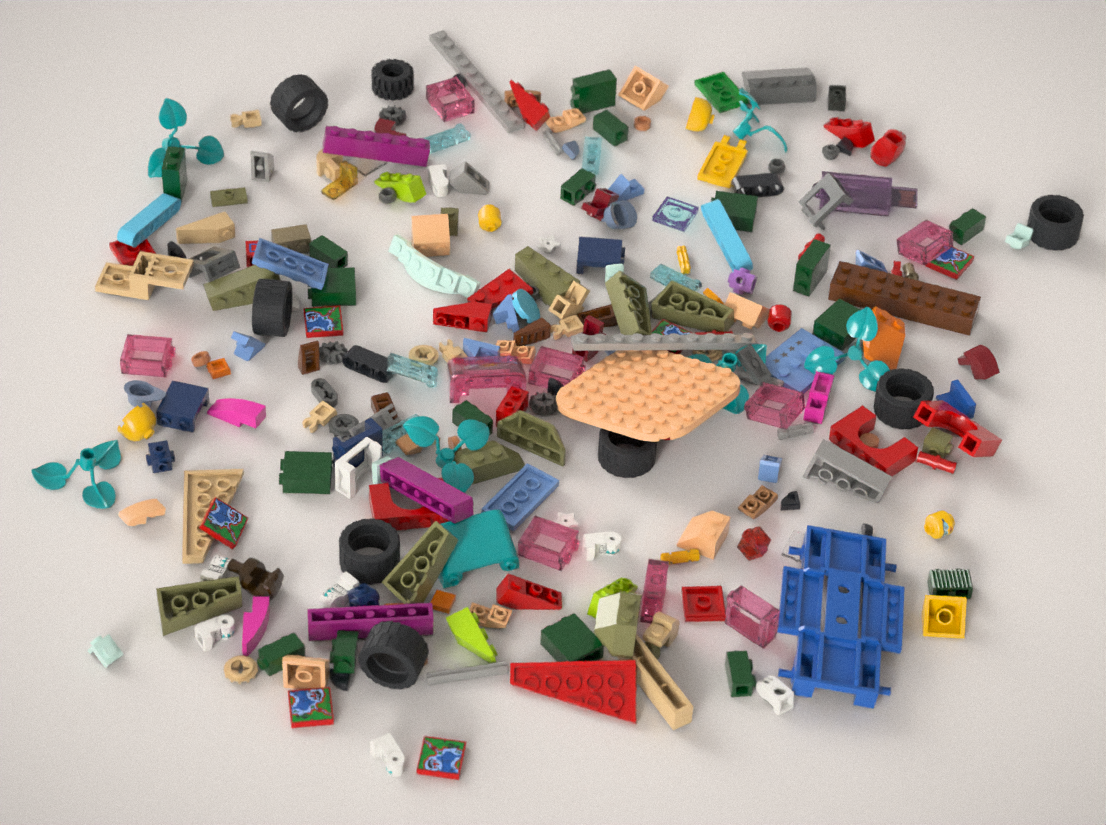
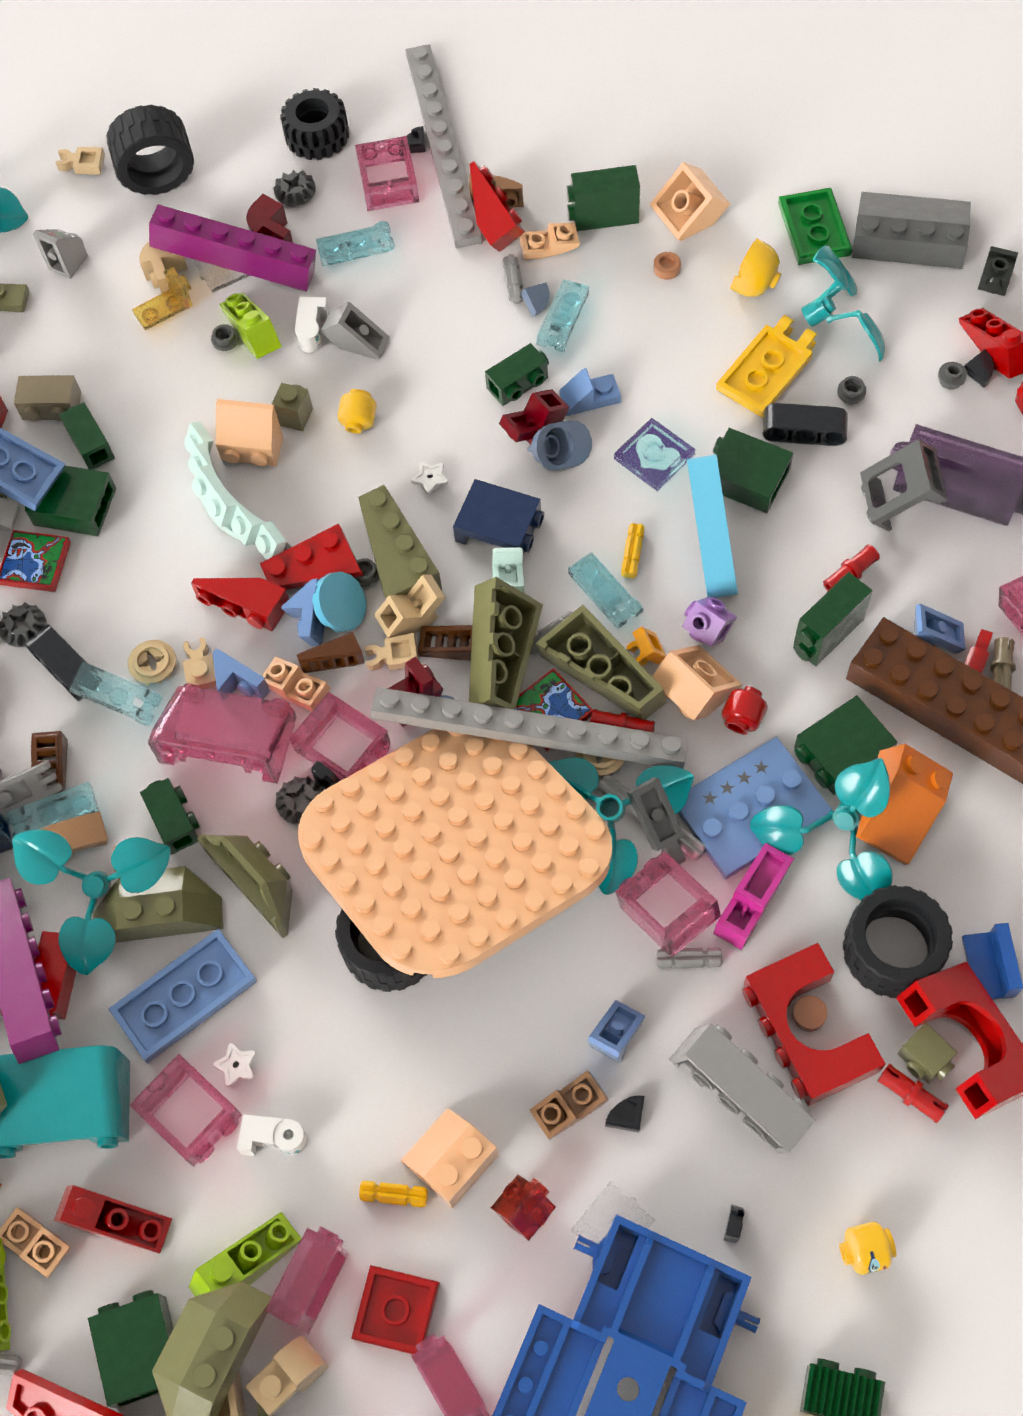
camera: 25 degrees right, 20 degrees up
(514, 400) = (239, 805): red brick -> none
(610, 128) = (611, 268): dark green brick -> none

